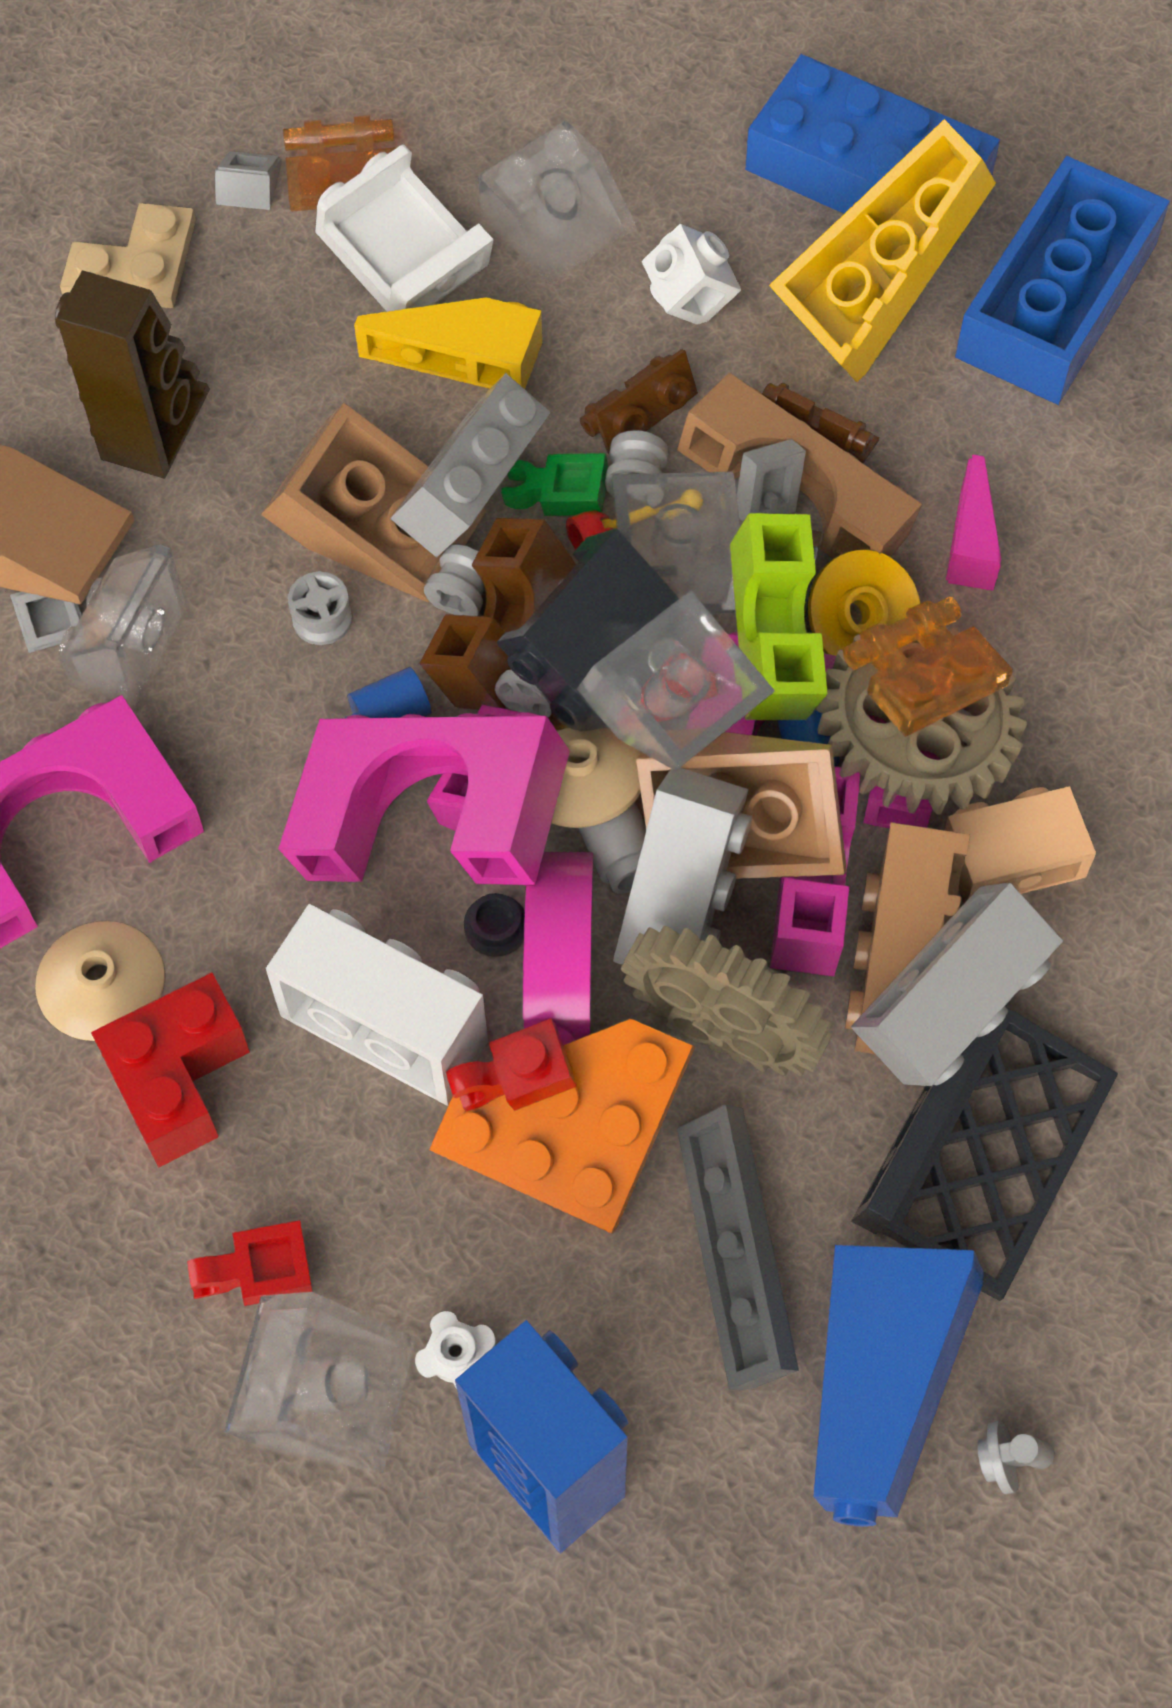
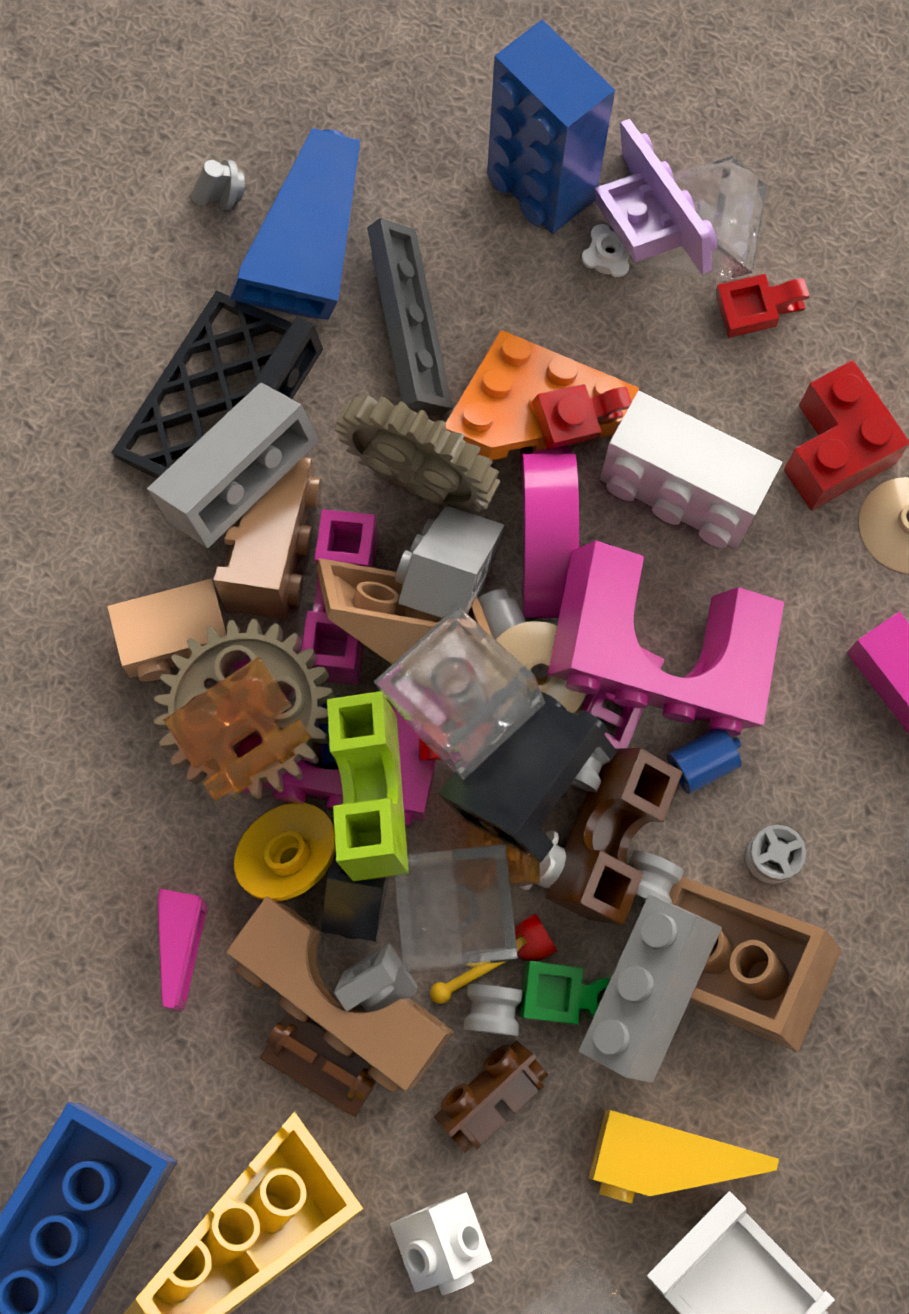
camera: 175 degrees right, 10 degrees up
(406, 1377) = (651, 209): none -> lavender bracket

